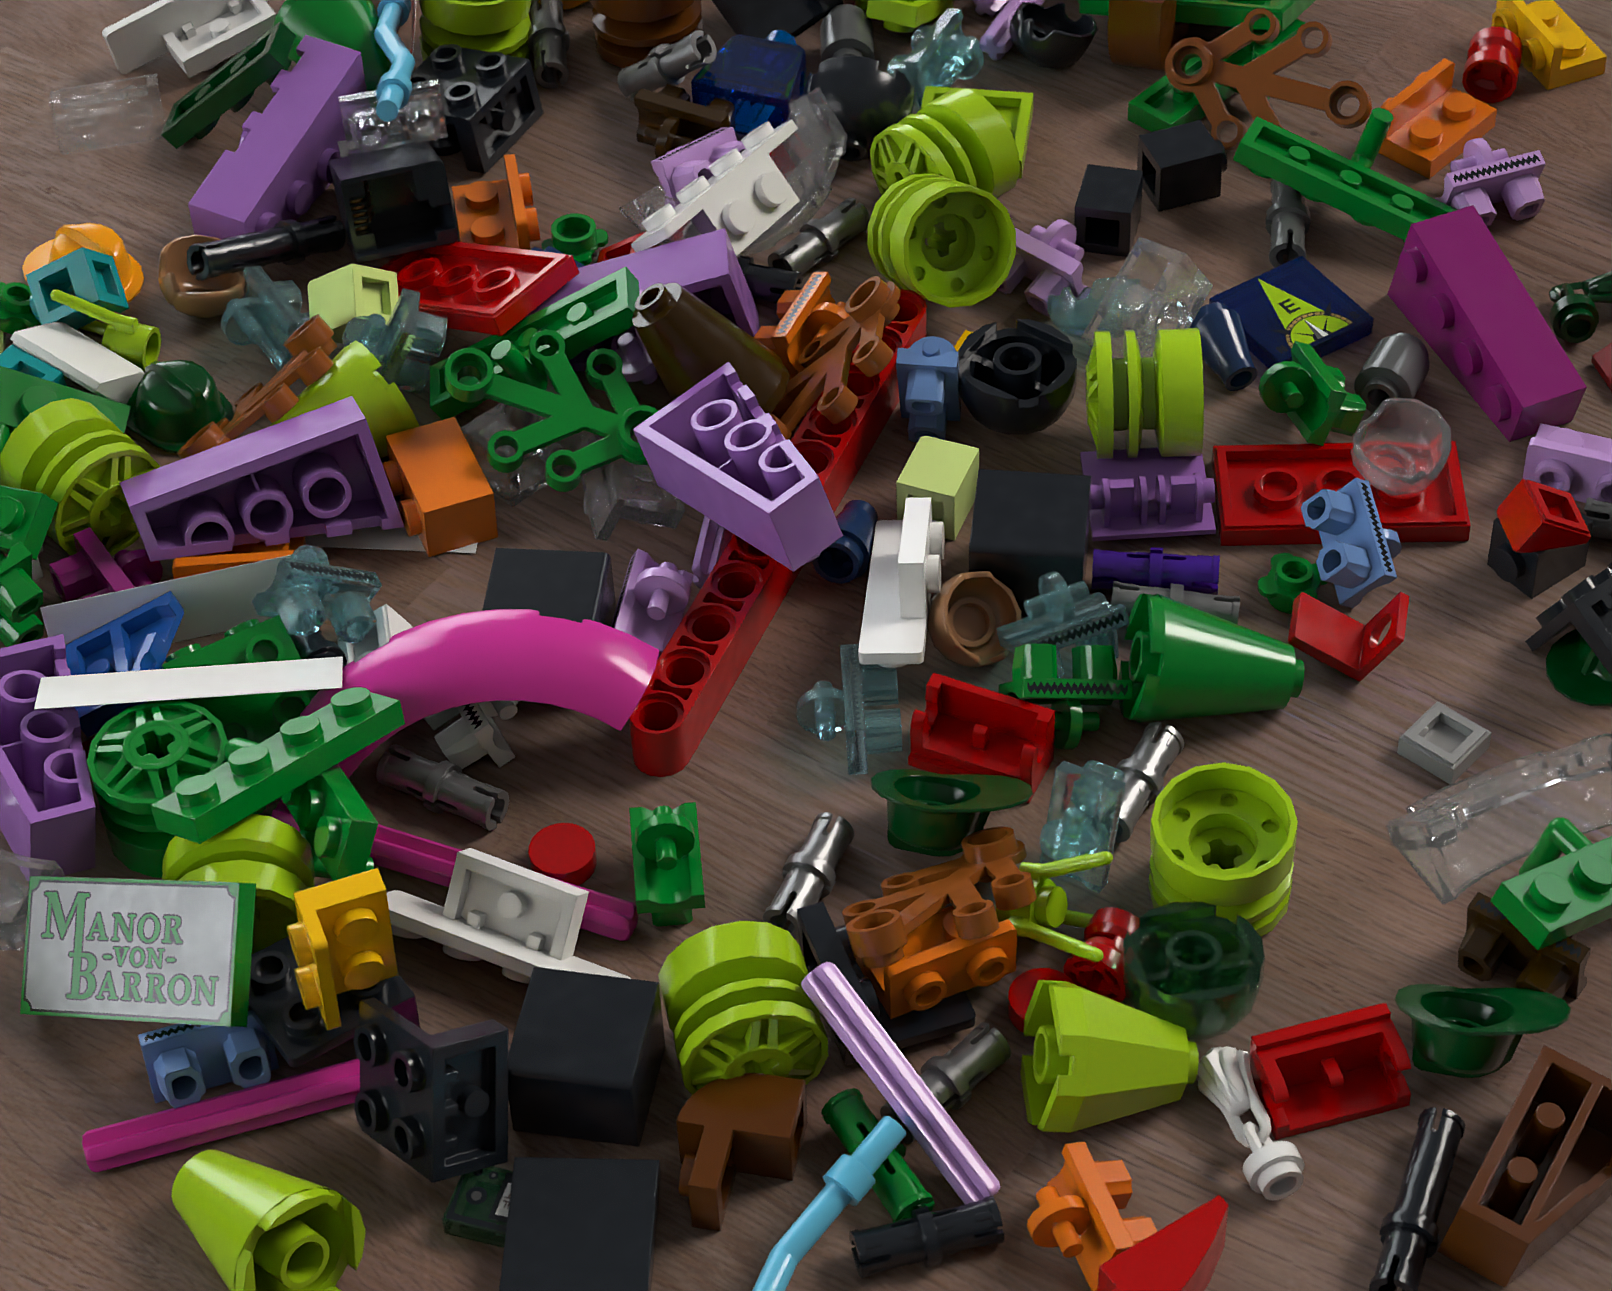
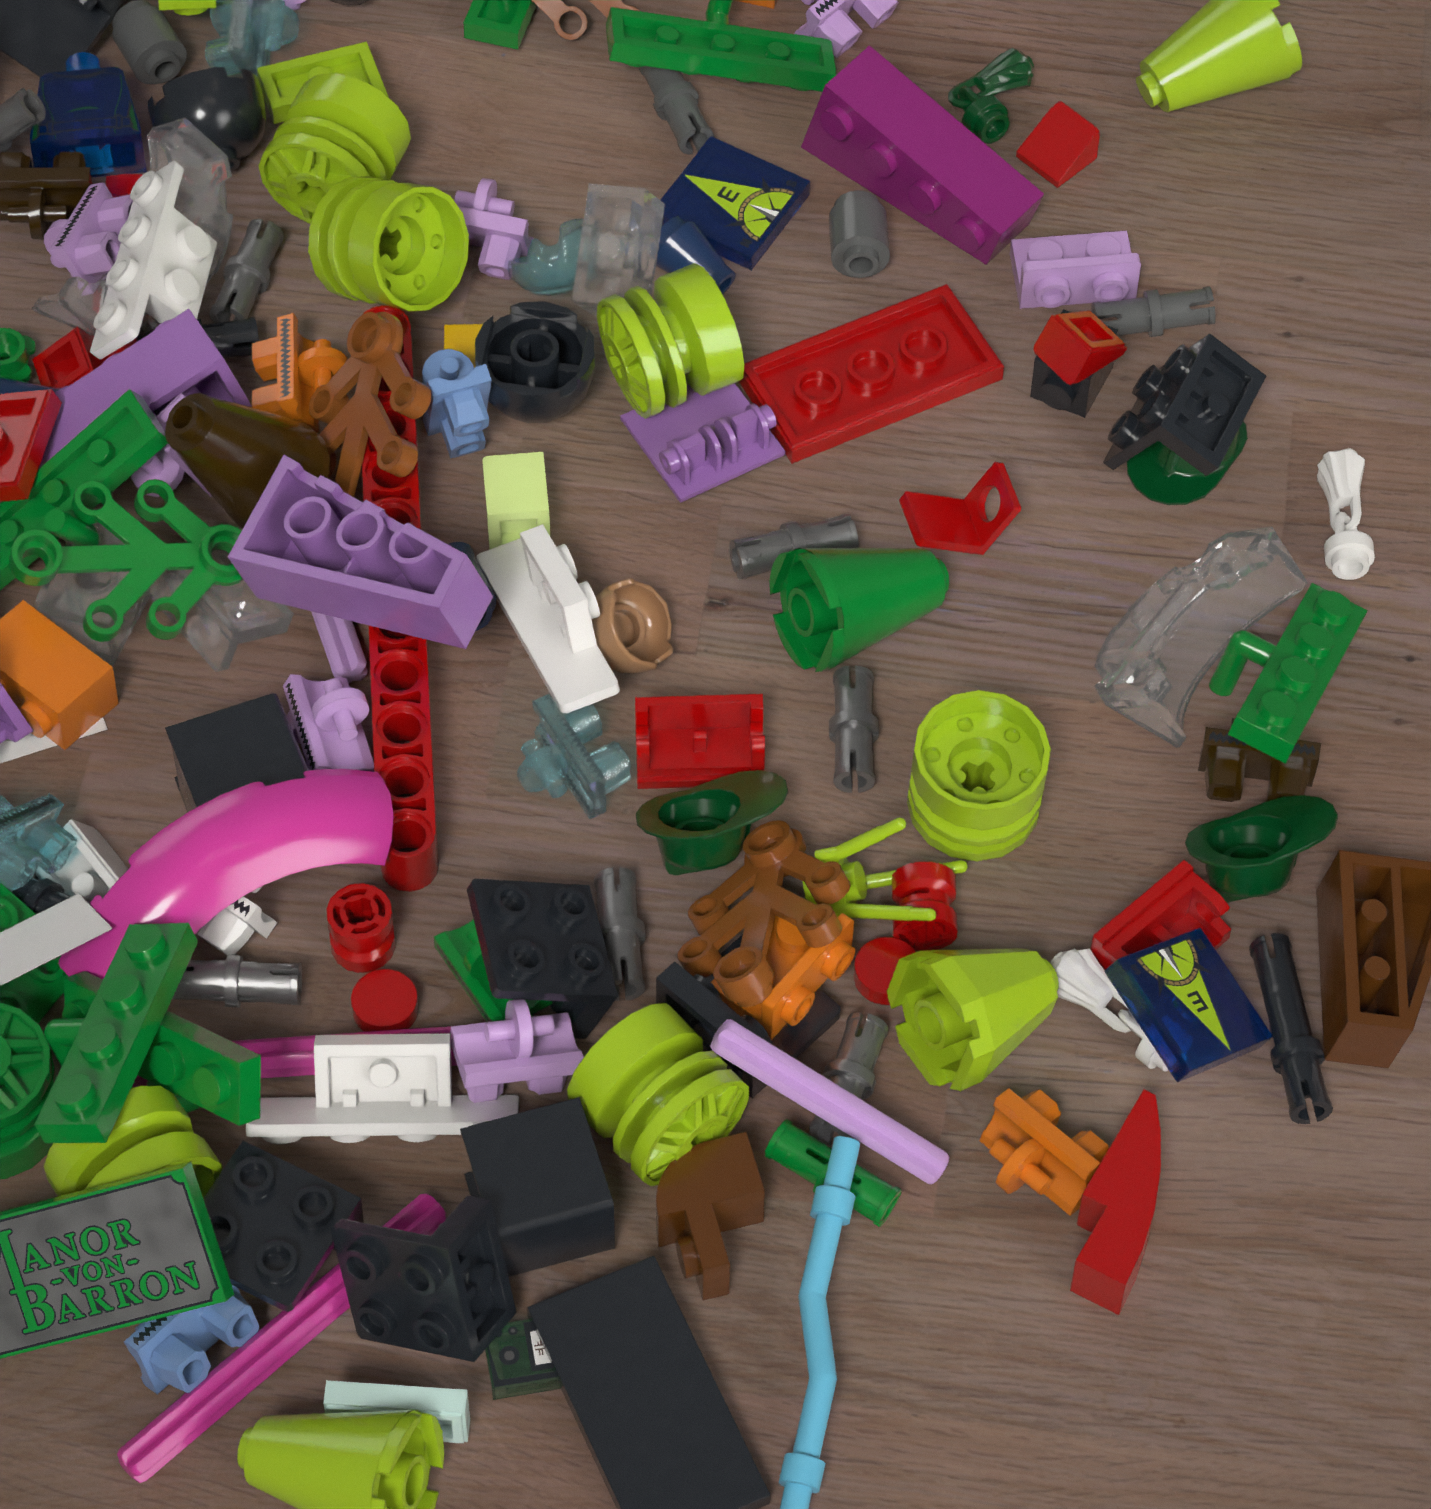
camera: 30 degrees left, 10 degrees up
(341, 941) = (299, 1185): yellow bracket -> none
(382, 1212) = (446, 1404): none -> light aqua tile
(577, 781) = (361, 927): none -> red wheel
(633, 927) = (515, 1050): none -> lavender hips
(711, 841) = (545, 947): none -> black bracket
(926, 1237) = (912, 1225): black pin -> none
(1029, 528) = (642, 526): black piece -> none
(1065, 617) = (713, 600): clear light blue hips -> none
(1083, 817) = (842, 788): clear light blue hips -> none
(1092, 685) = (770, 651): green hips -> none
(1108, 210) = (509, 147): black brick -> none
(1156, 570) = (757, 514): dark purple pin -> none
(1181, 165) = (548, 76): black brick -> none
(1193, 968) = (1013, 891): clear green cylinder -> none
(1288, 579) = (876, 492): green plate -> none
(1311, 395) = (805, 285): green hips -> none
(1315, 1138) = (1188, 1004): none -> clear blue tile
(1355, 546) = (920, 423): medium blue hips -> none
(1402, 446) = (919, 313): clear hair -> none
(1444, 742) = (1087, 588): light grey tile -> none

